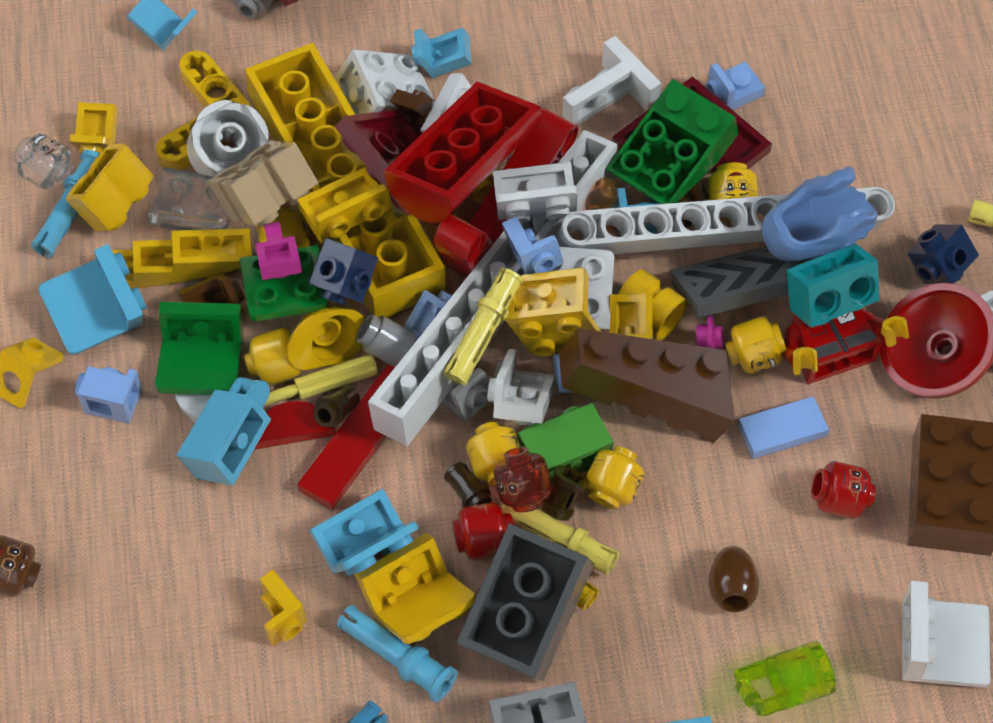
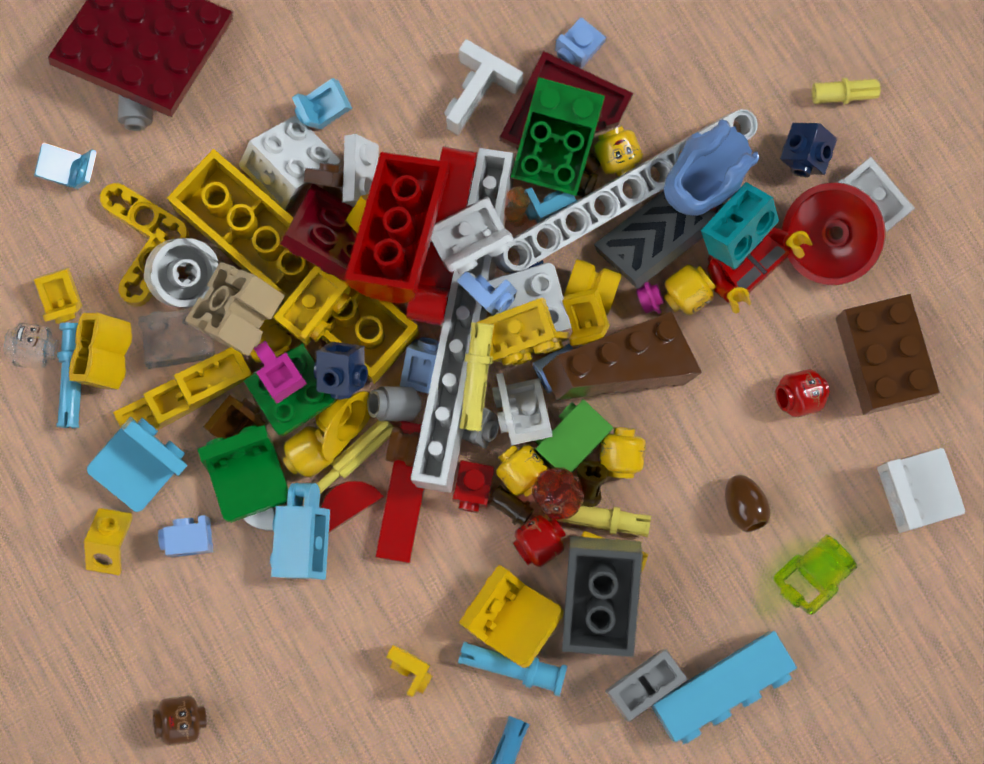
camera: 25 degrees left, 20 degrees up
(331, 409) = (376, 484): dark brown pin -> none
(360, 532) = (451, 585): medium azure bracket -> none
(370, 377) = (402, 446): none -> reddish brown wheel
(434, 455) = (473, 486): none -> red bracket
(783, 427) = (734, 352): light blue tile -> none

